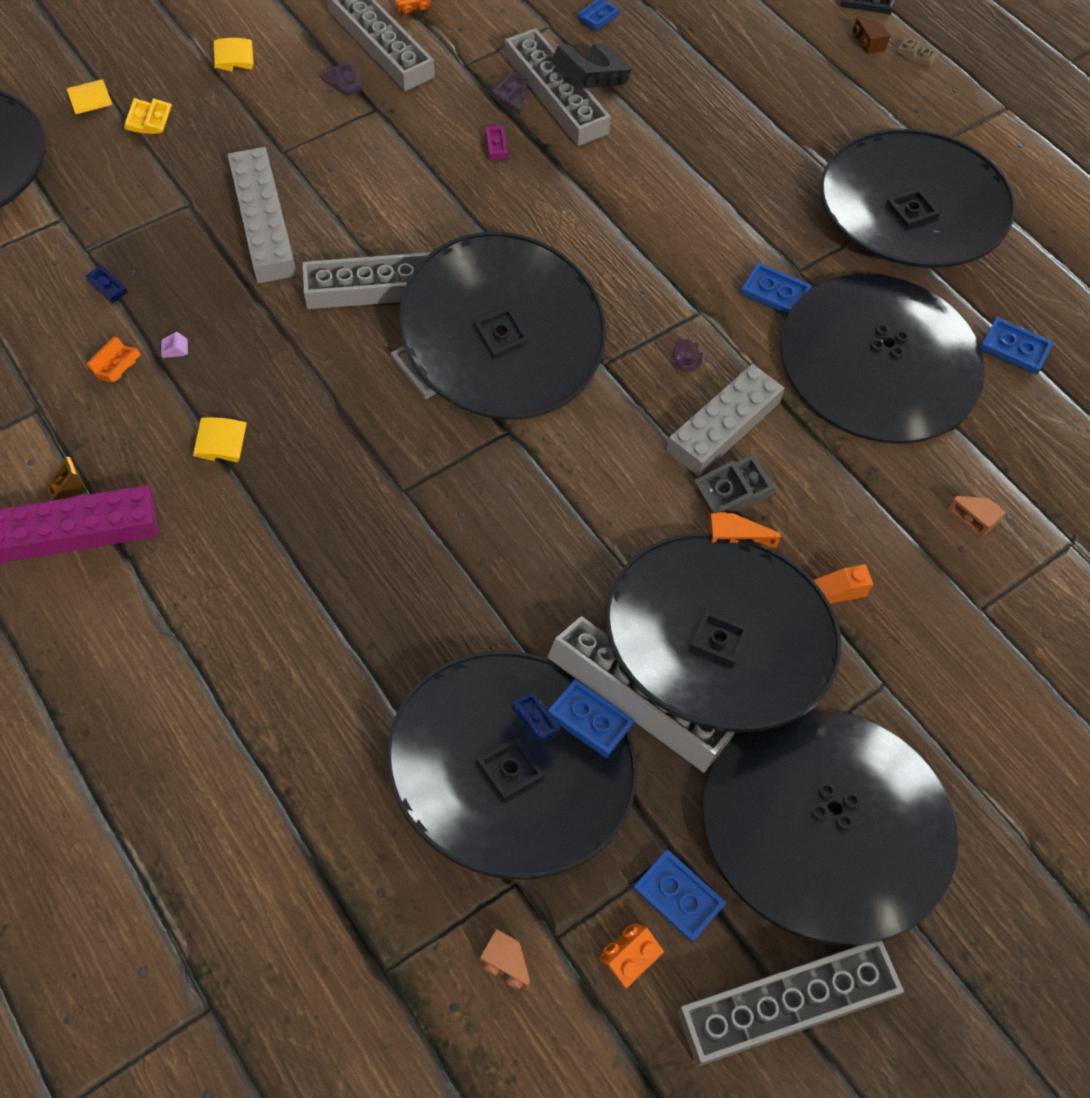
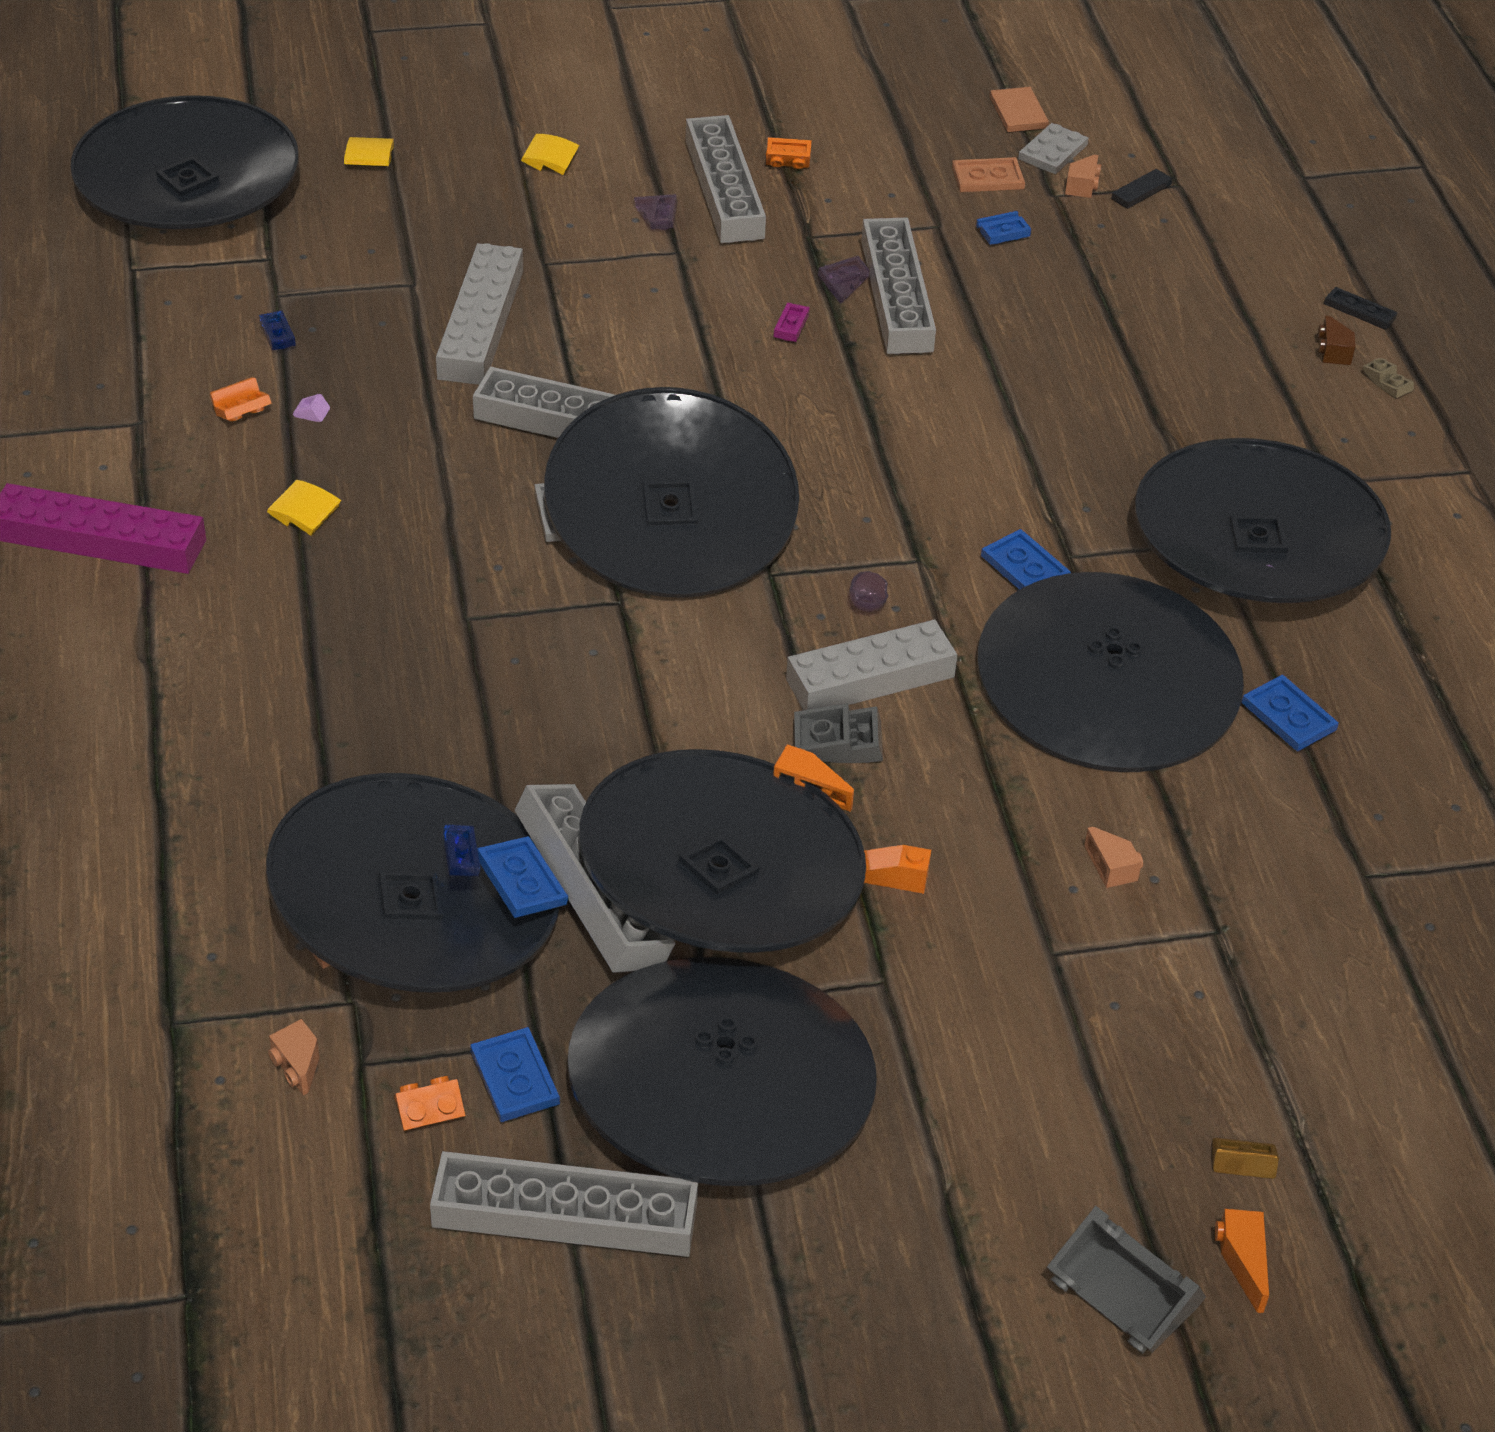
camera: 25 degrees right, 15 degrees down
(64, 481) = (128, 488): pearl gold slope -> none
(147, 117) = (419, 188): yellow slope -> none
(599, 68) = (969, 285): black arch -> none

